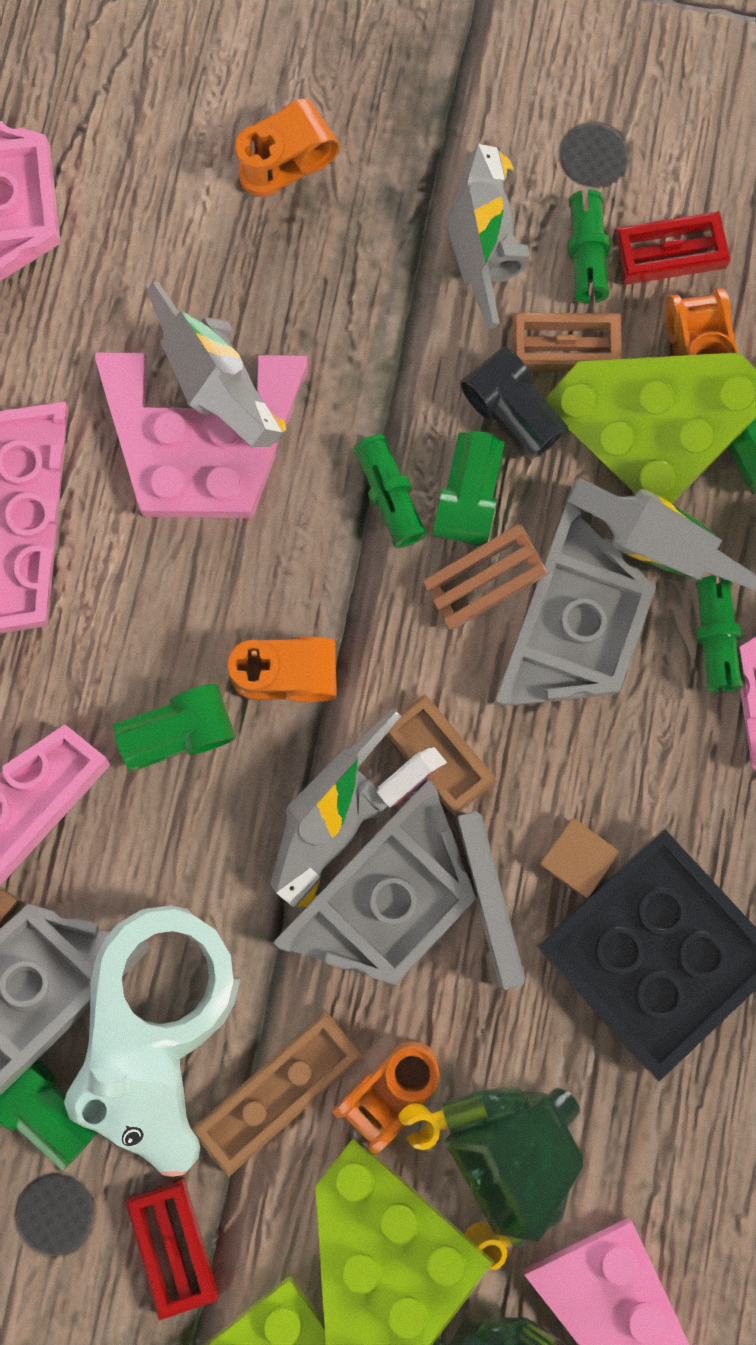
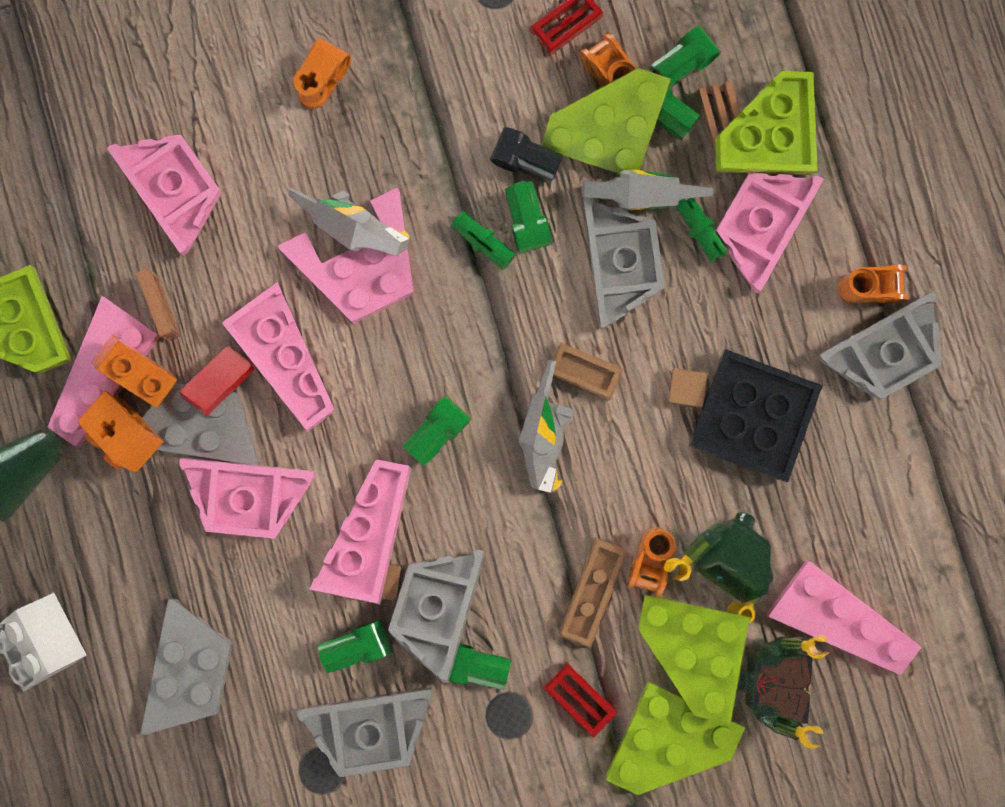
camera: 30 degrees left, 5 degrees up
(132, 1066) = (511, 619): light aqua animal -> none
(293, 669) = (485, 366): orange piece -> none
(389, 897) = (598, 461): light grey wing -> none
(410, 776) = (578, 390): white tile -> none
(444, 600) = (544, 285): nougat tile -> none
(483, 228) = (457, 64): light grey animal -> none
(490, 900) = (652, 435): light grey tile -> none
(565, 322) = (541, 117): nougat tile -> none
(588, 246) = (521, 44): green pin -> none

